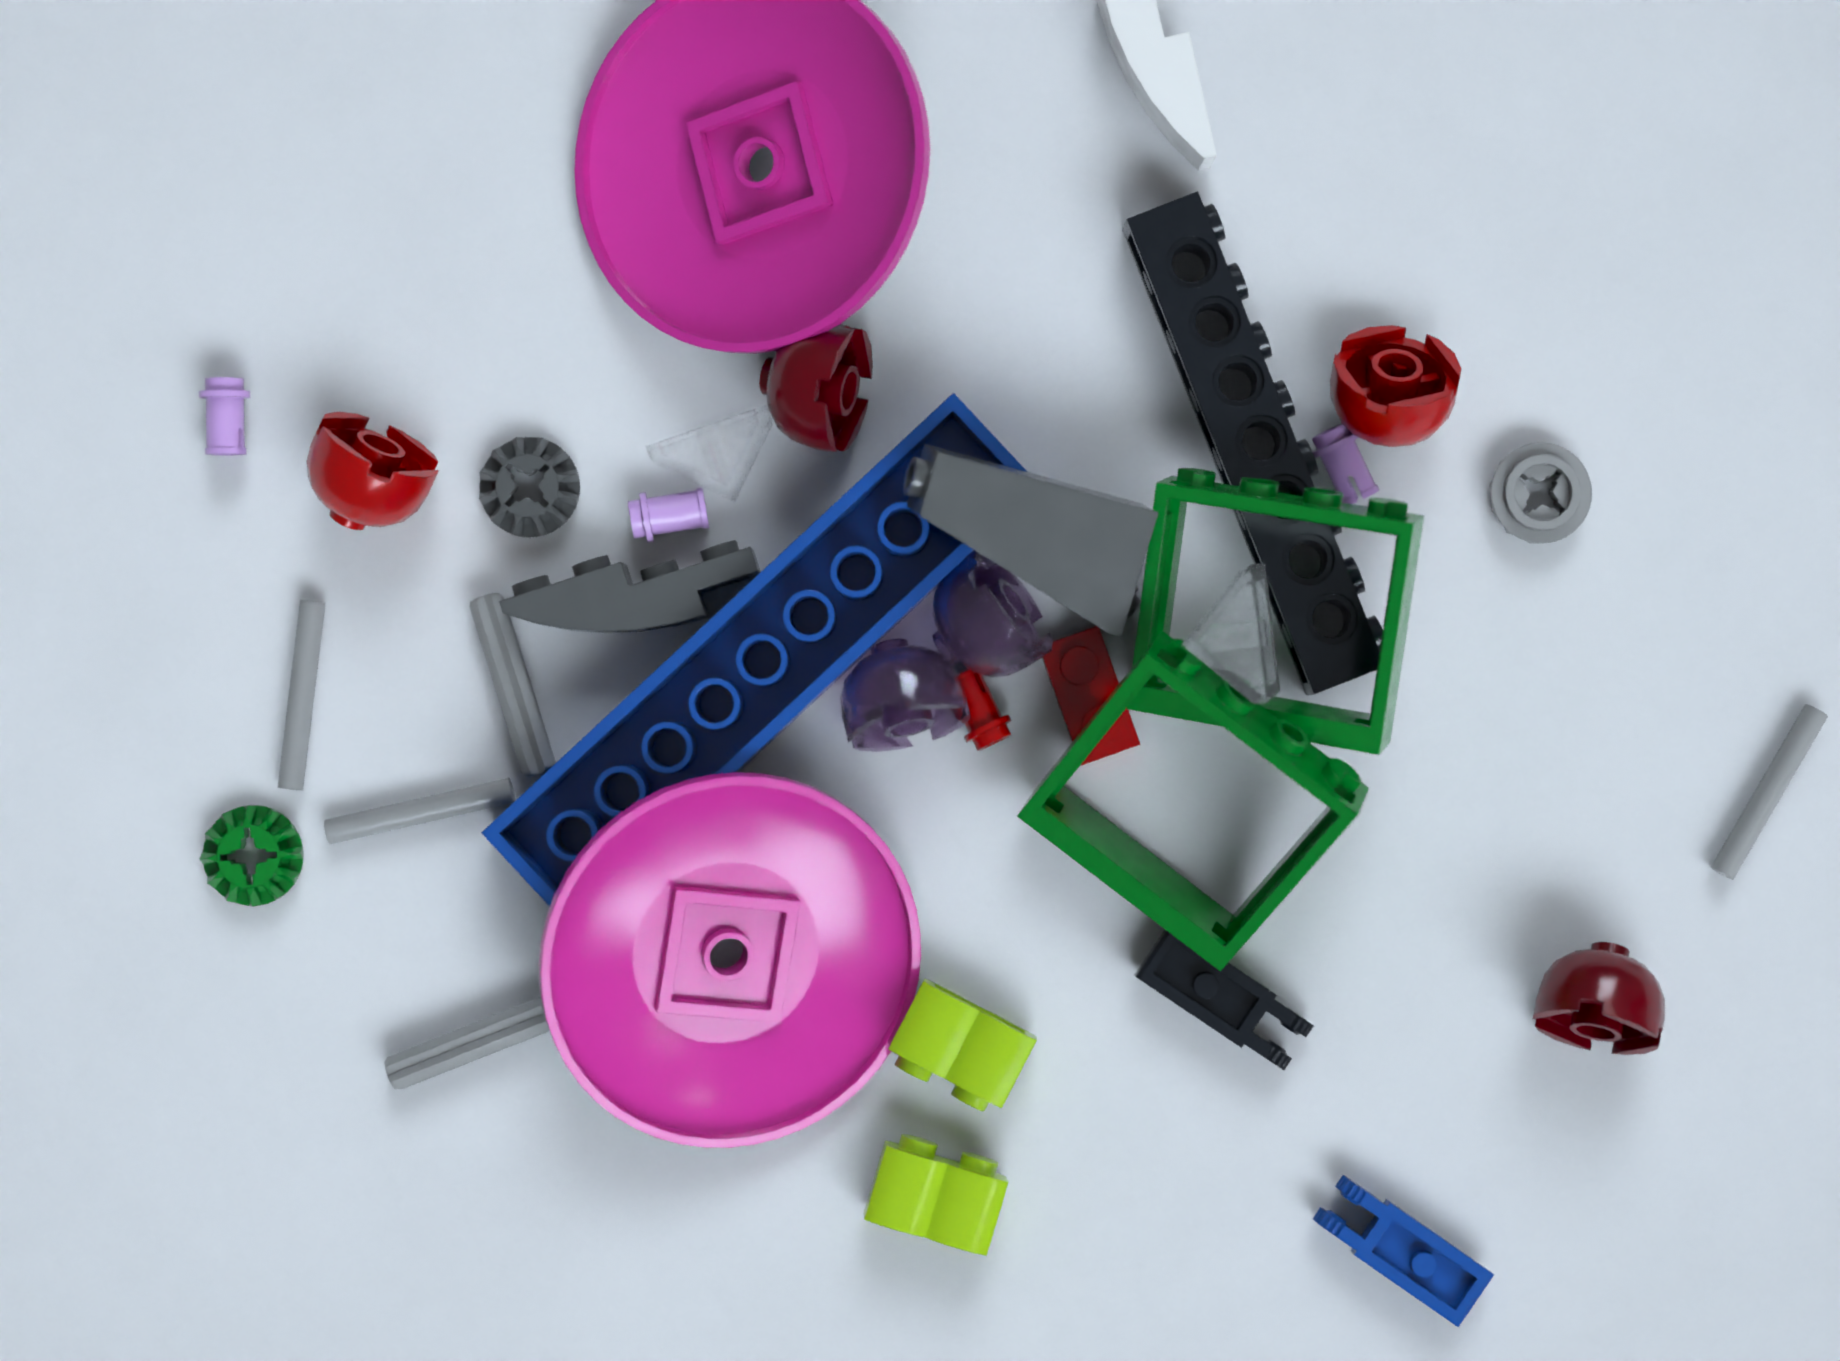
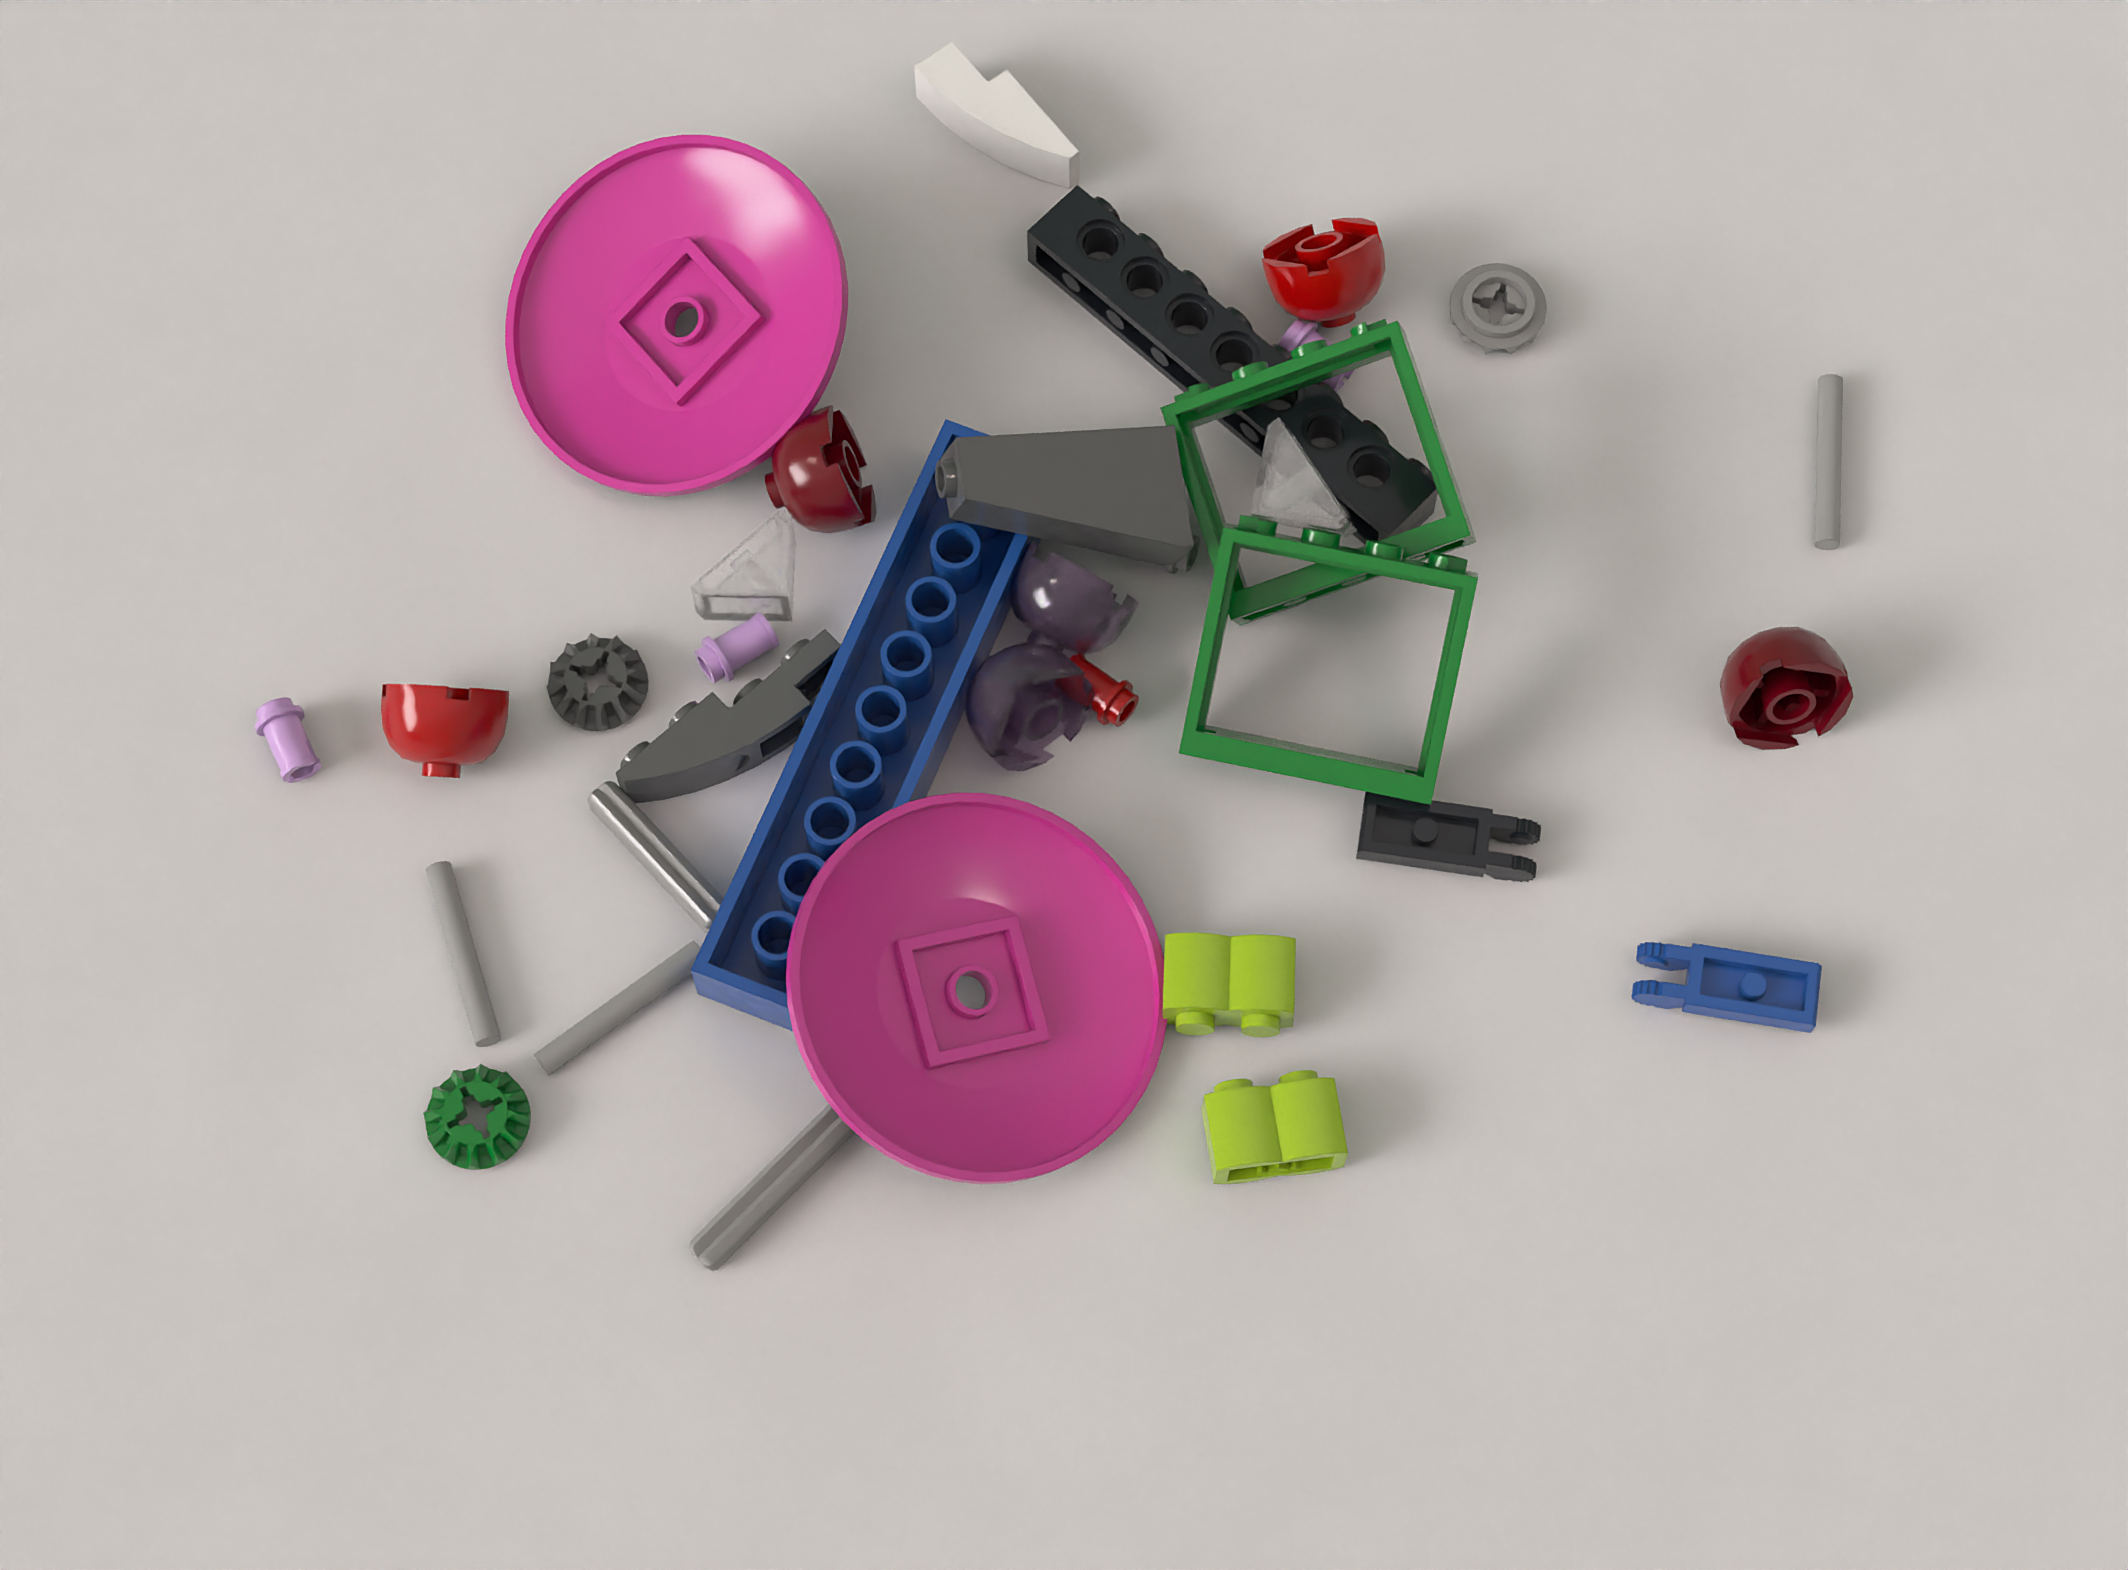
camera: 25 degrees left, 20 degrees down
(1081, 683) = (1173, 625): red plate -> none

